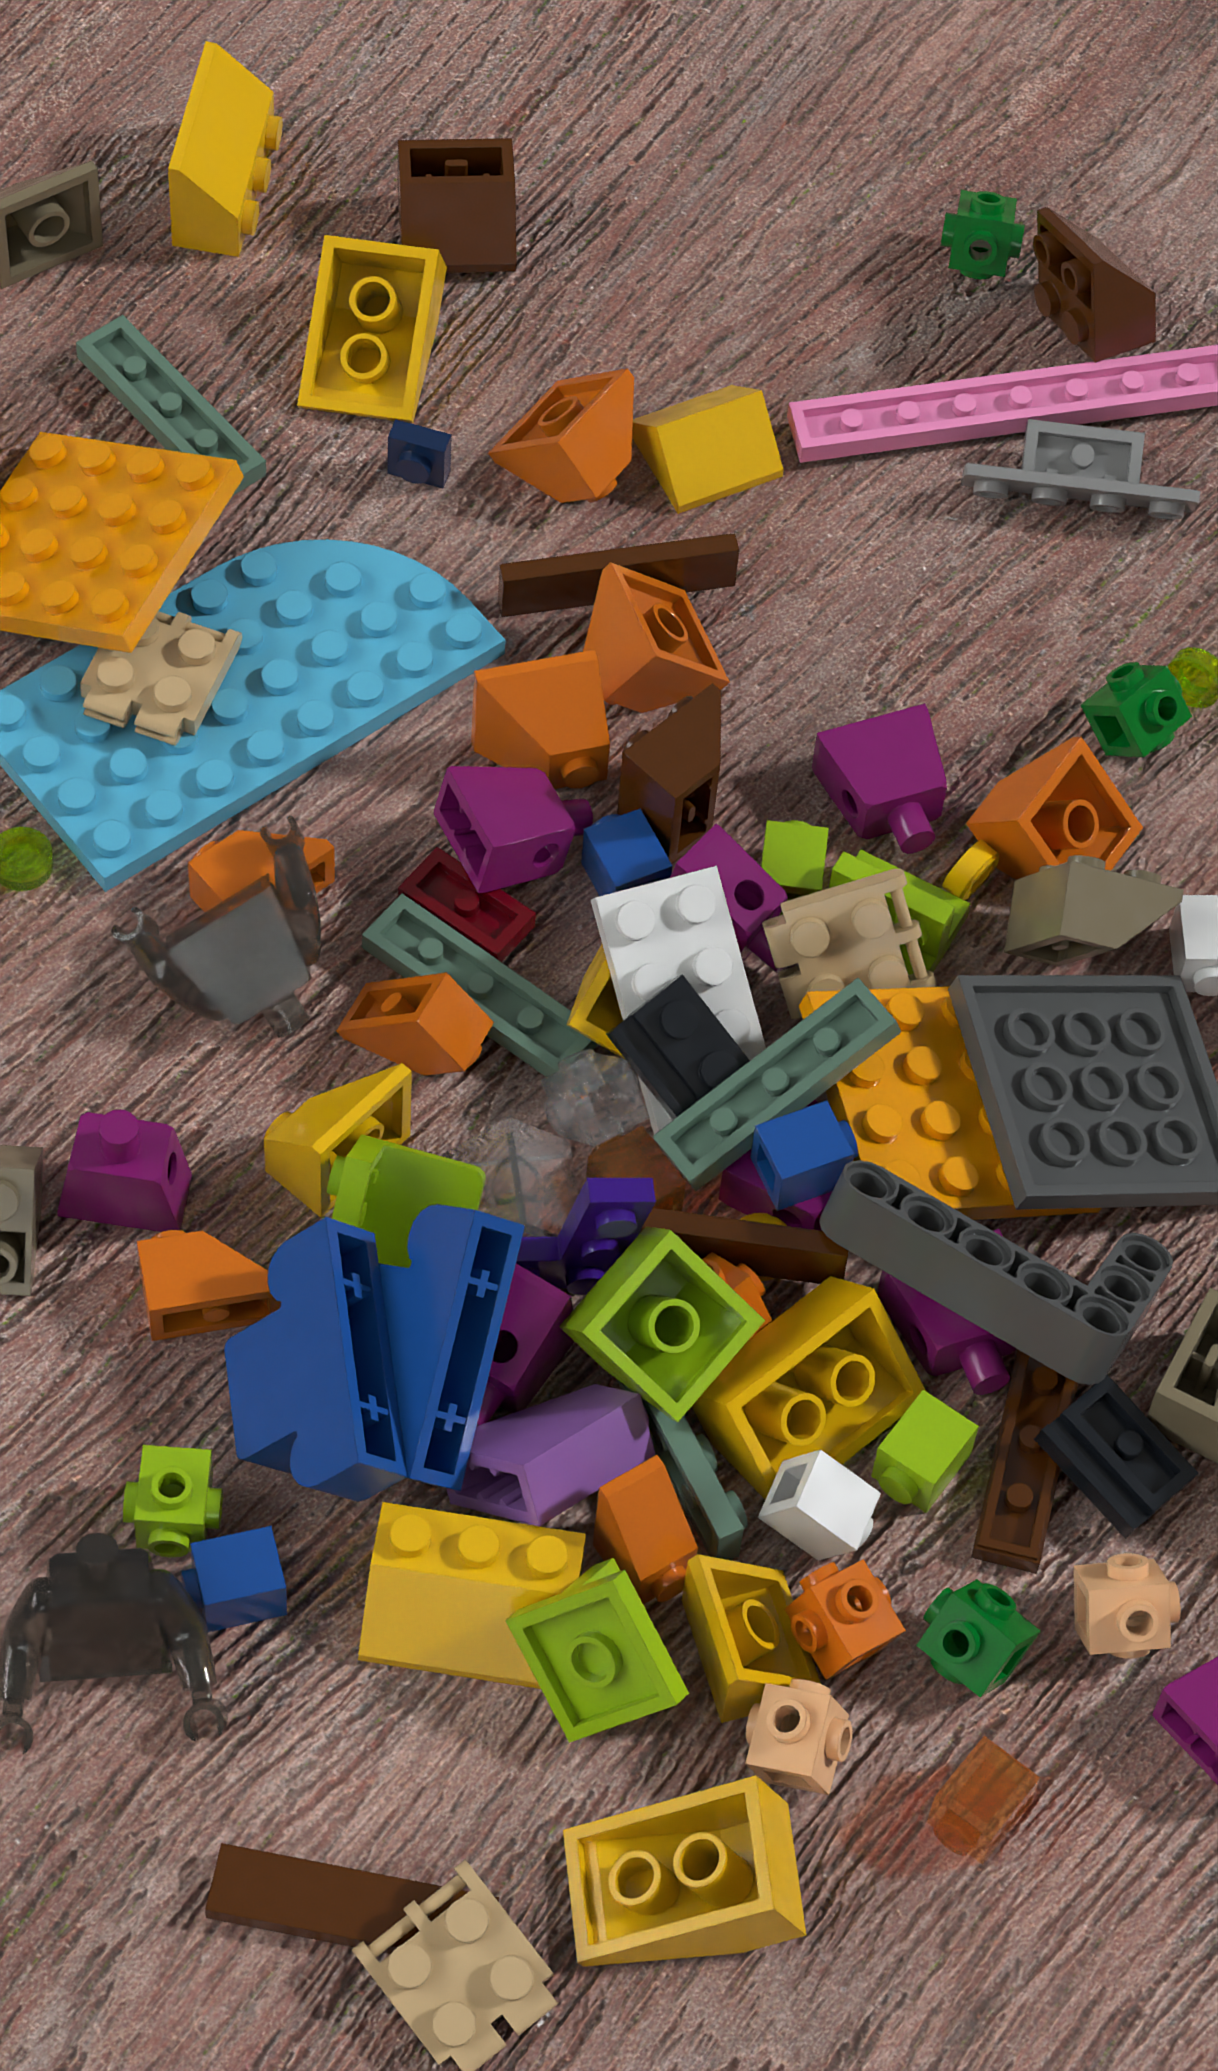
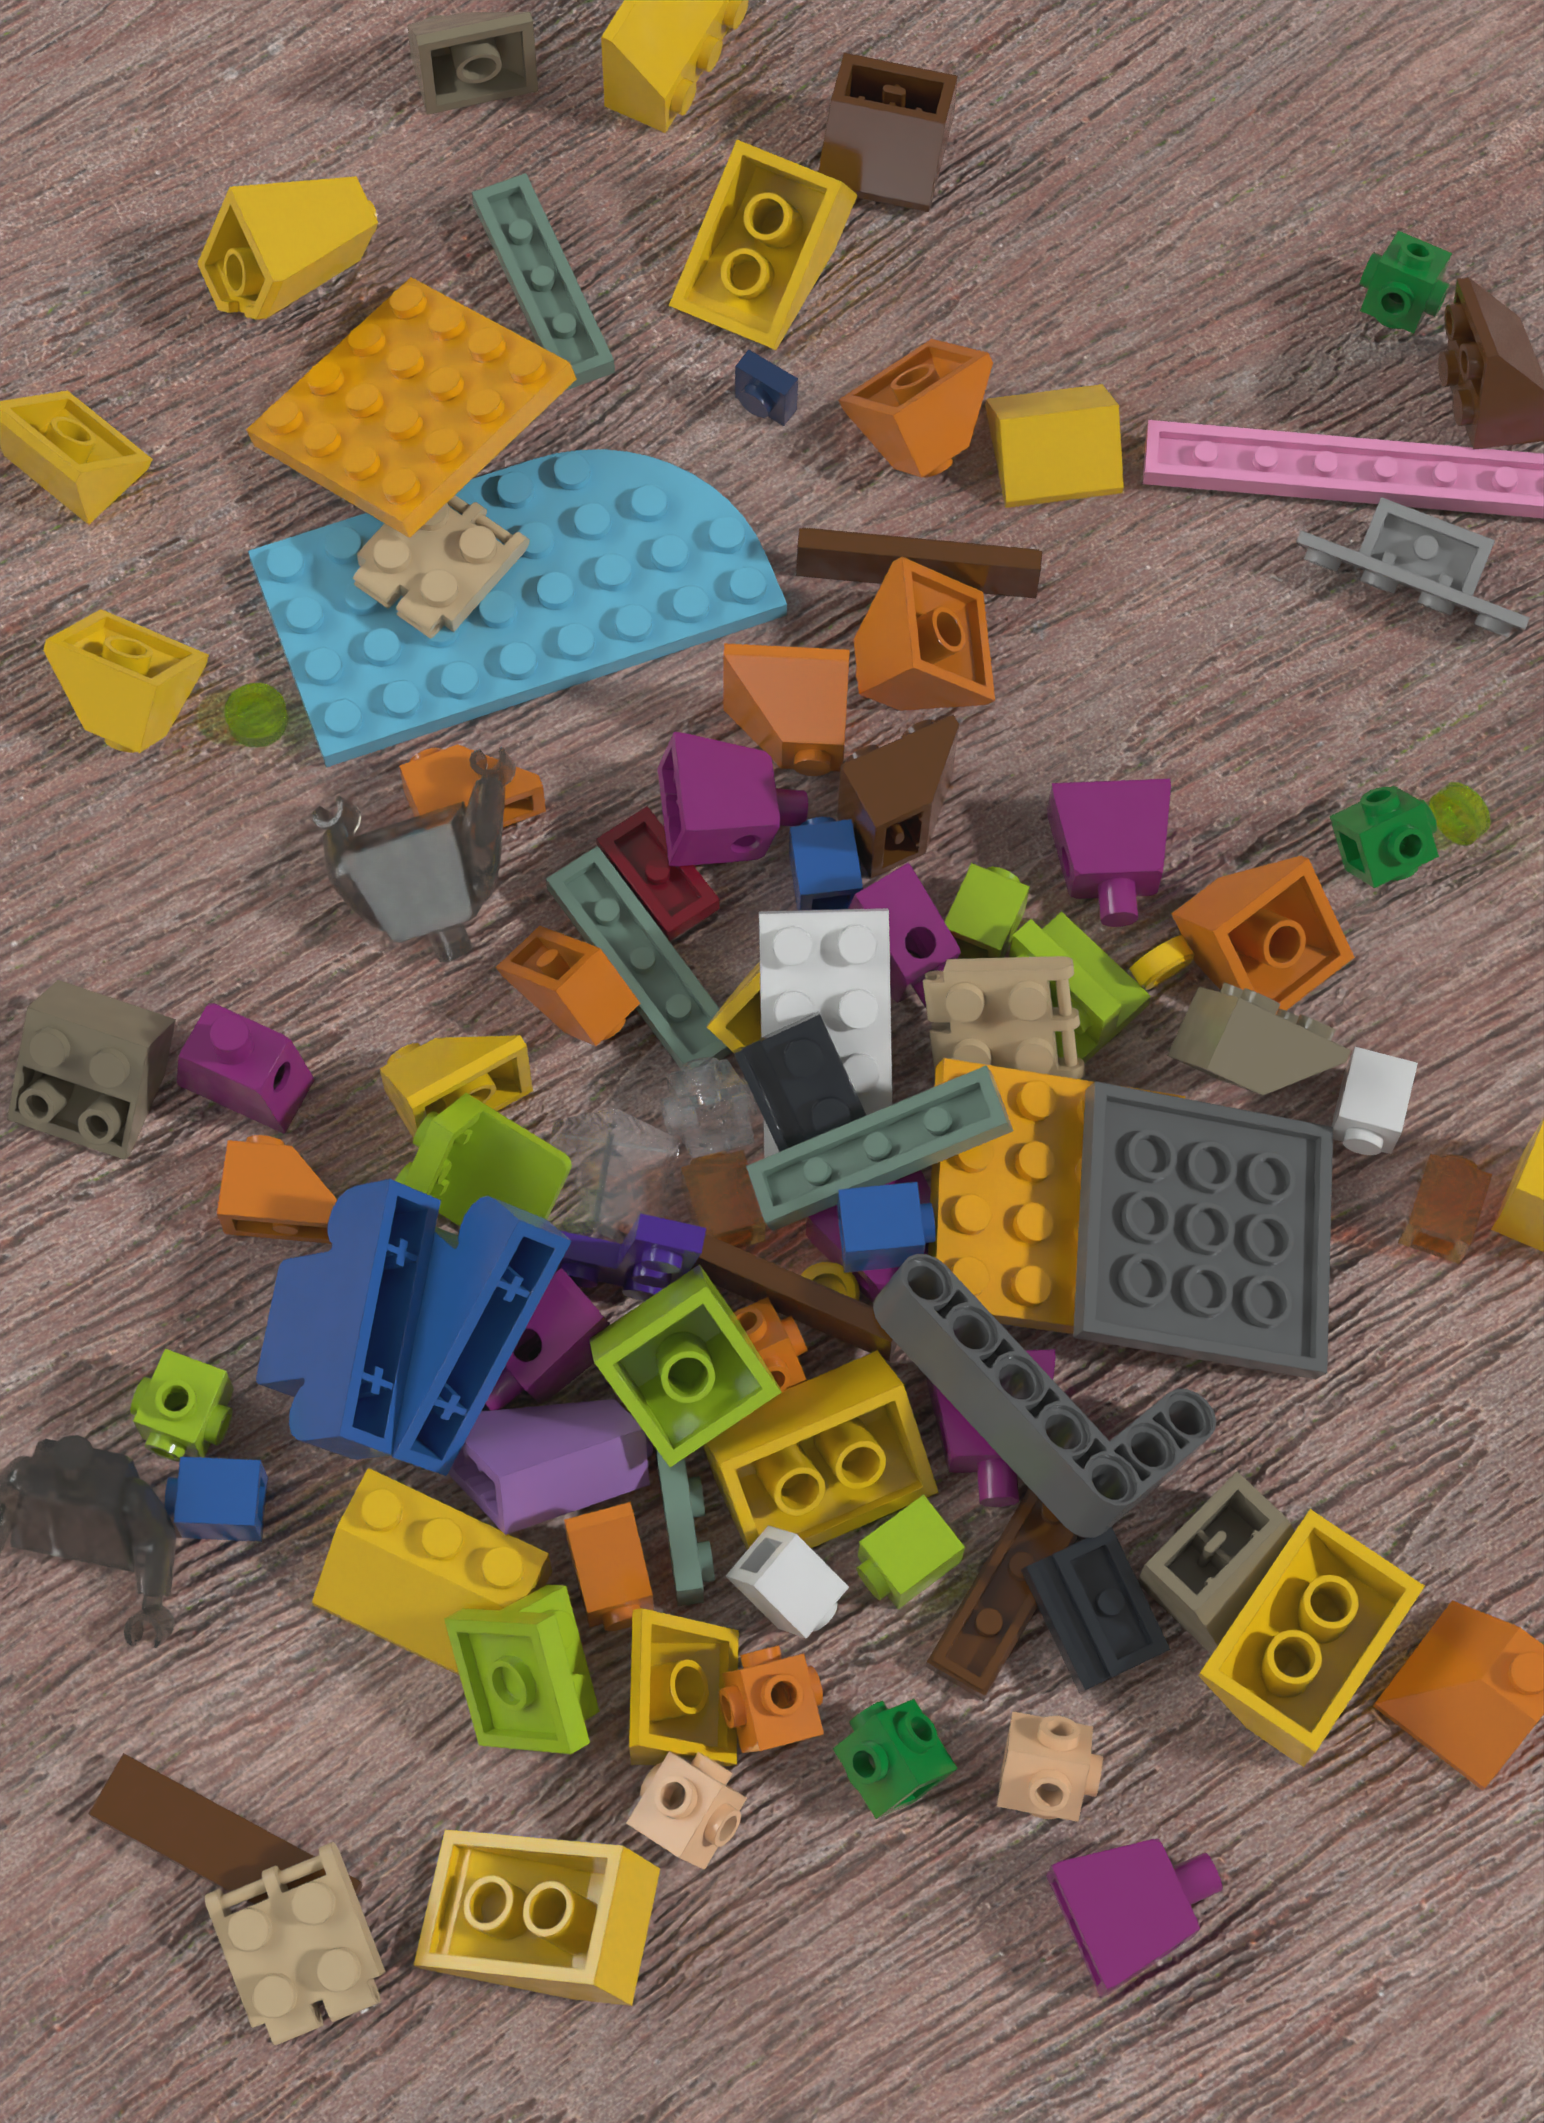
camera: 20 degrees right, 10 degrees up
(982, 1801) = (844, 1921): clear orange brick -> none

